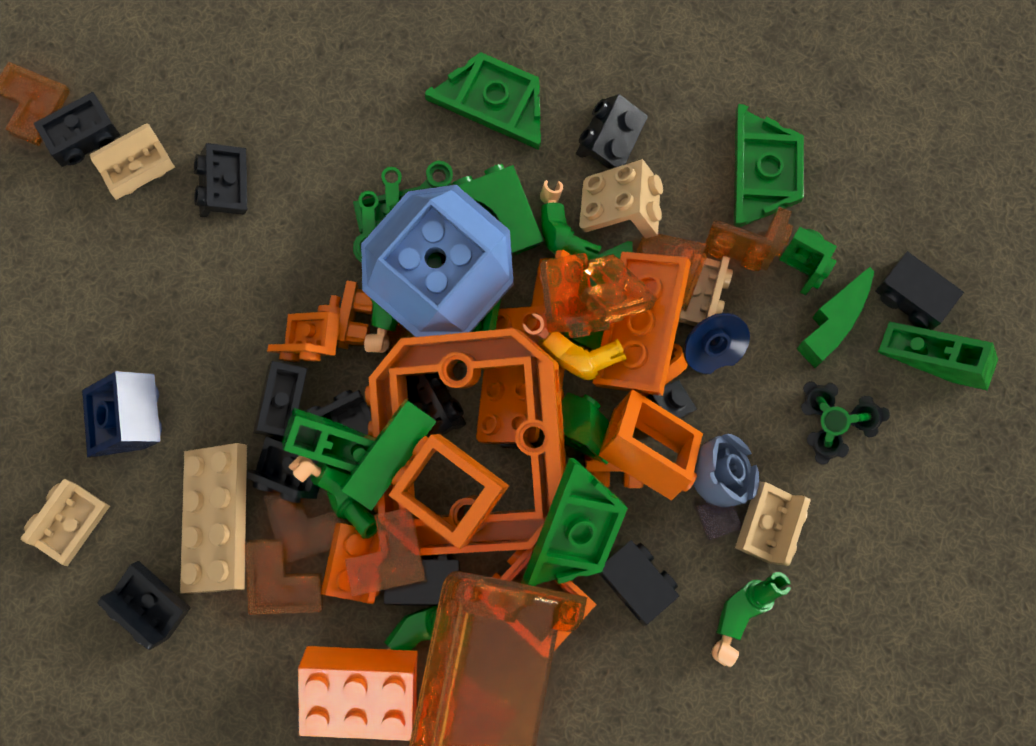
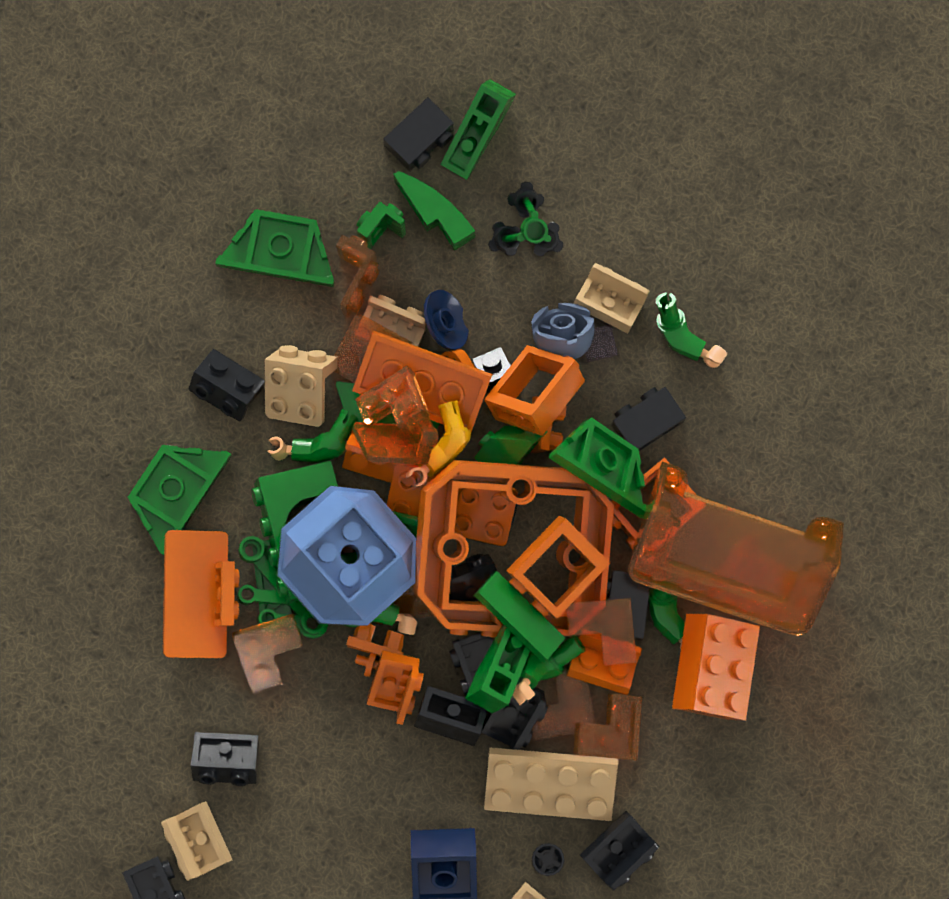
camera: 85 degrees left, 5 degrees up
(124, 524) = (551, 861): none -> black wheel
(338, 197) = (259, 645): none -> clear orange plate
(387, 129) = (198, 594): none -> orange bracket

